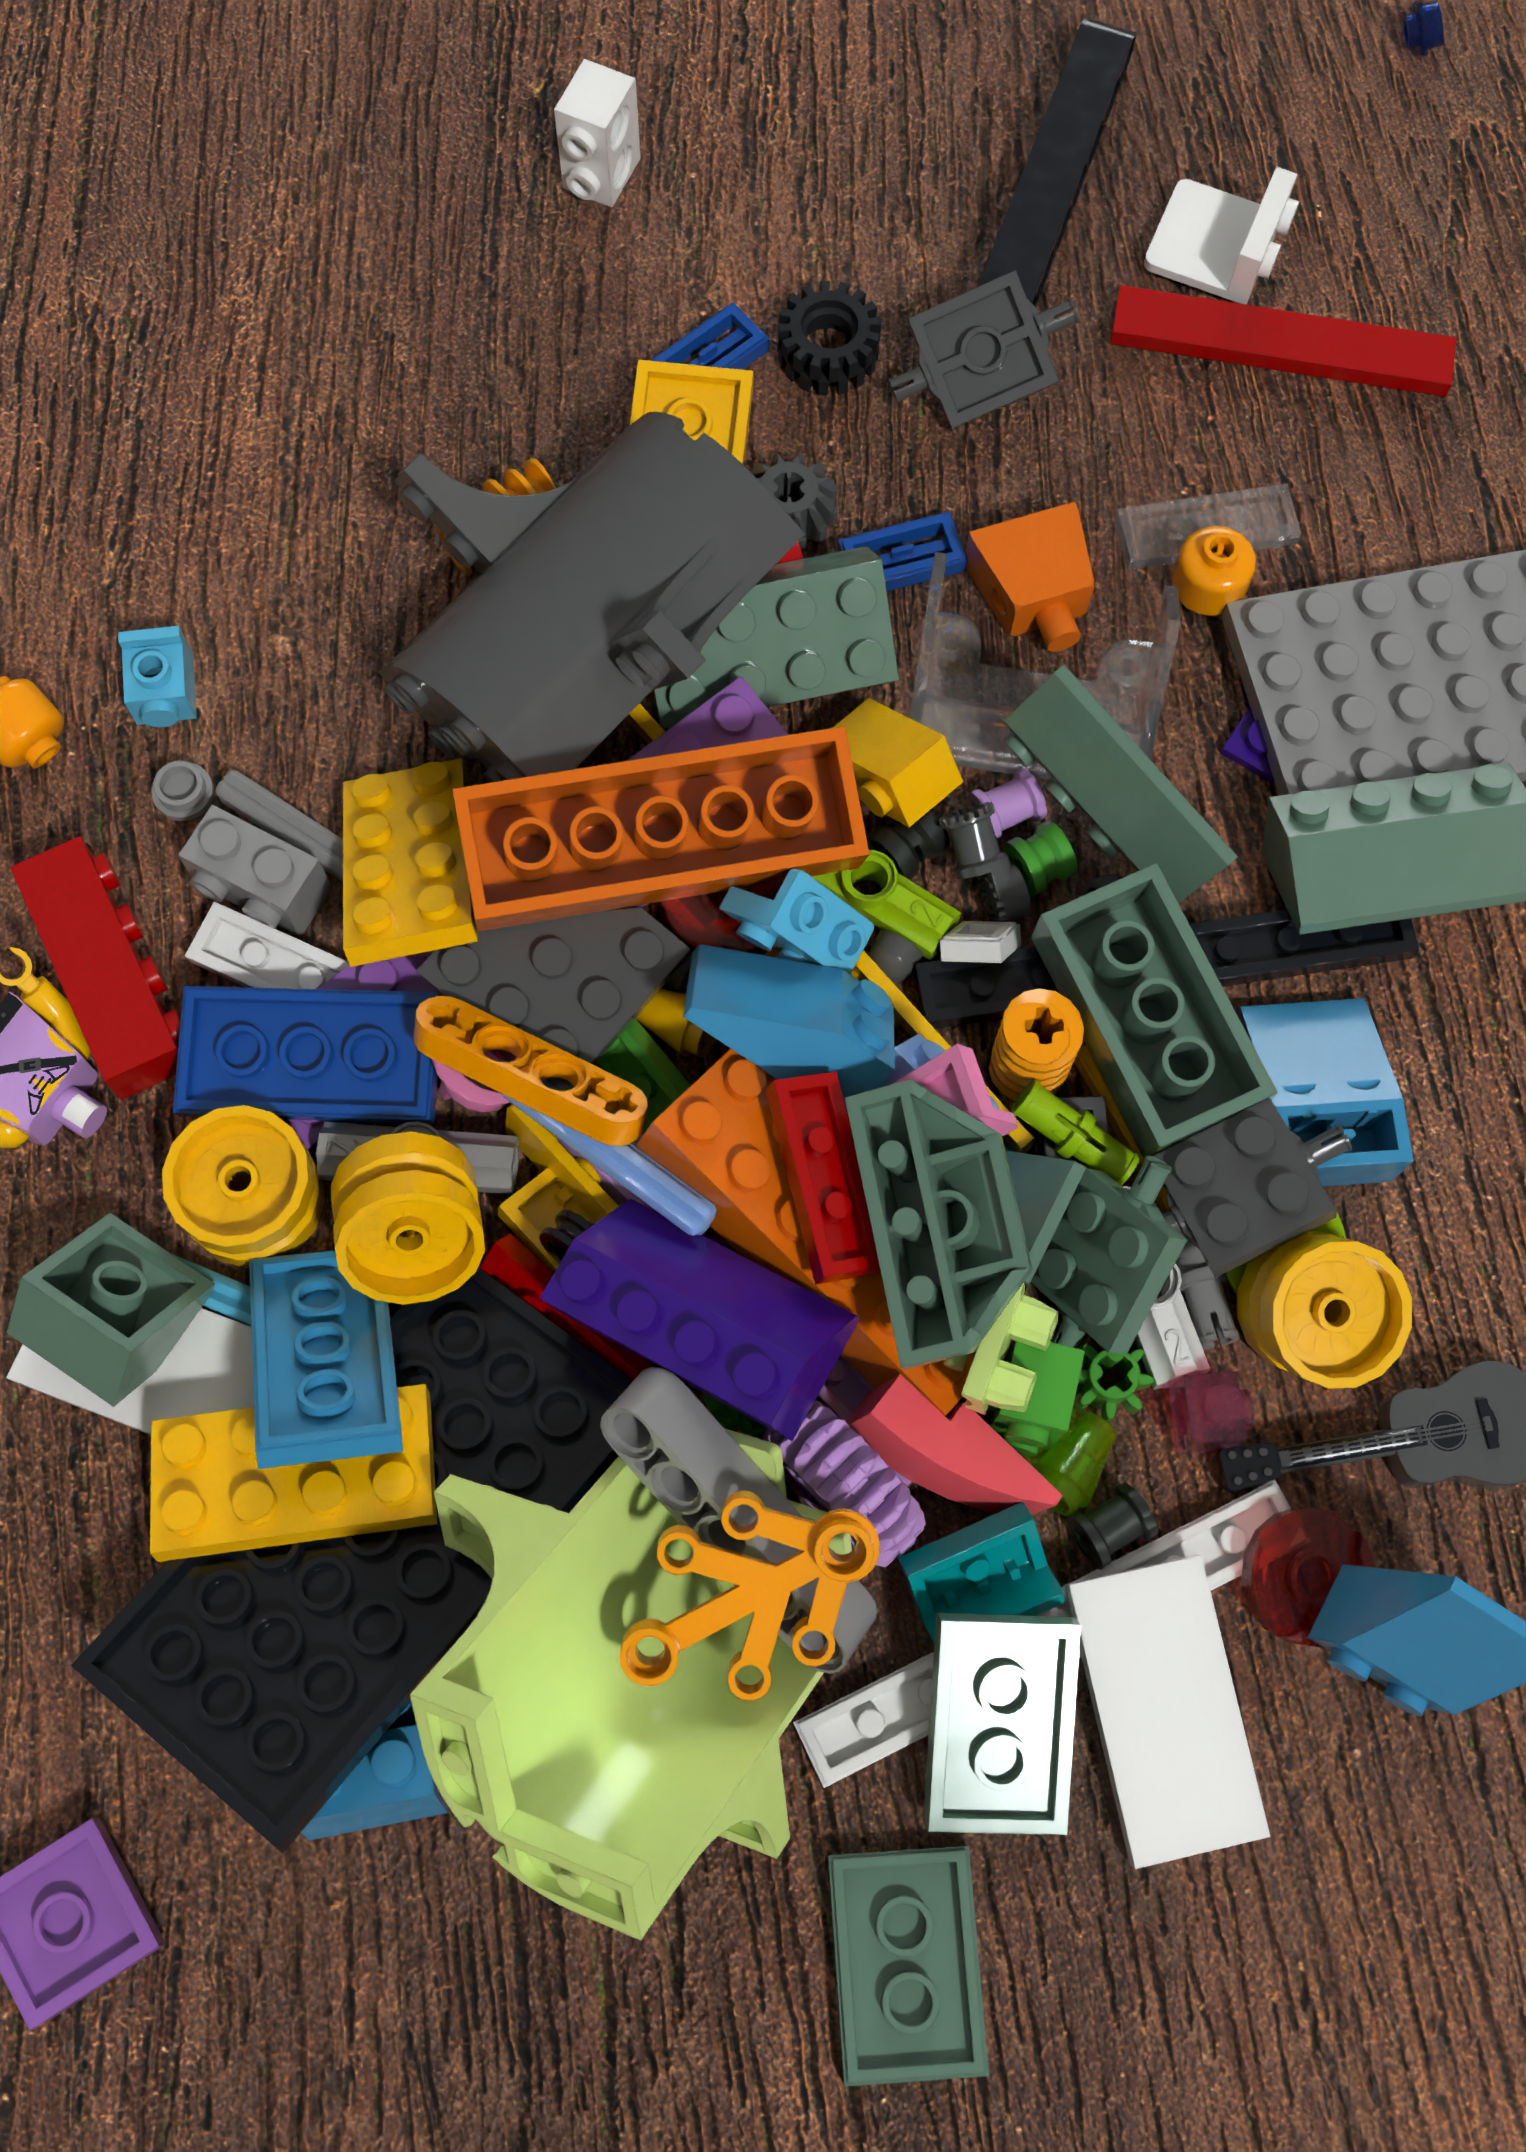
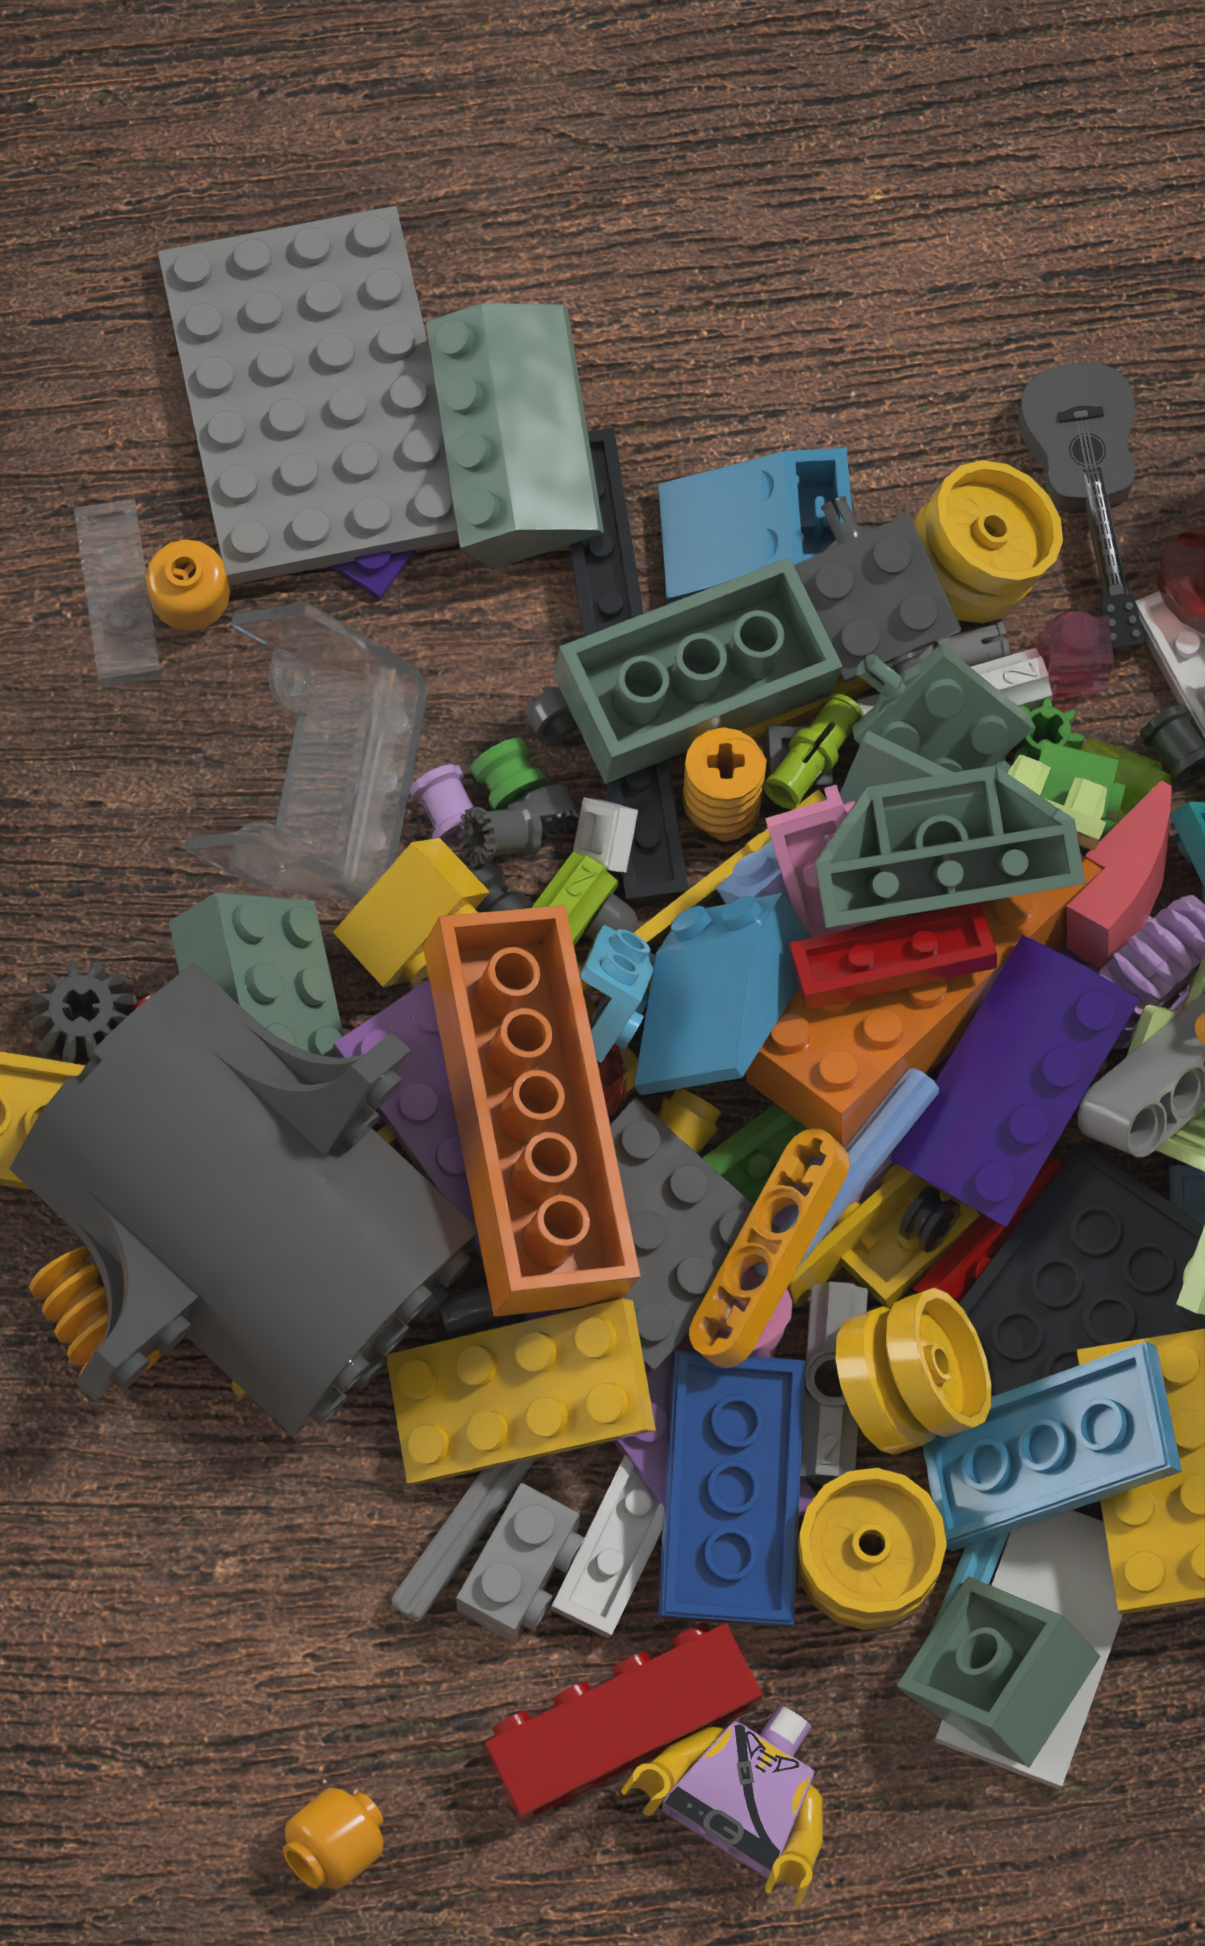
camera: 90 degrees left, 0 degrees up
(158, 676) = (265, 1709): medium azure brick -> none
(182, 791) = (412, 1657): light grey plate -> none
(912, 563) = (155, 952): blue tile -> none
(1035, 573) = (182, 762): orange torso -> none
(1114, 785) = (455, 690): sand green slope -> none

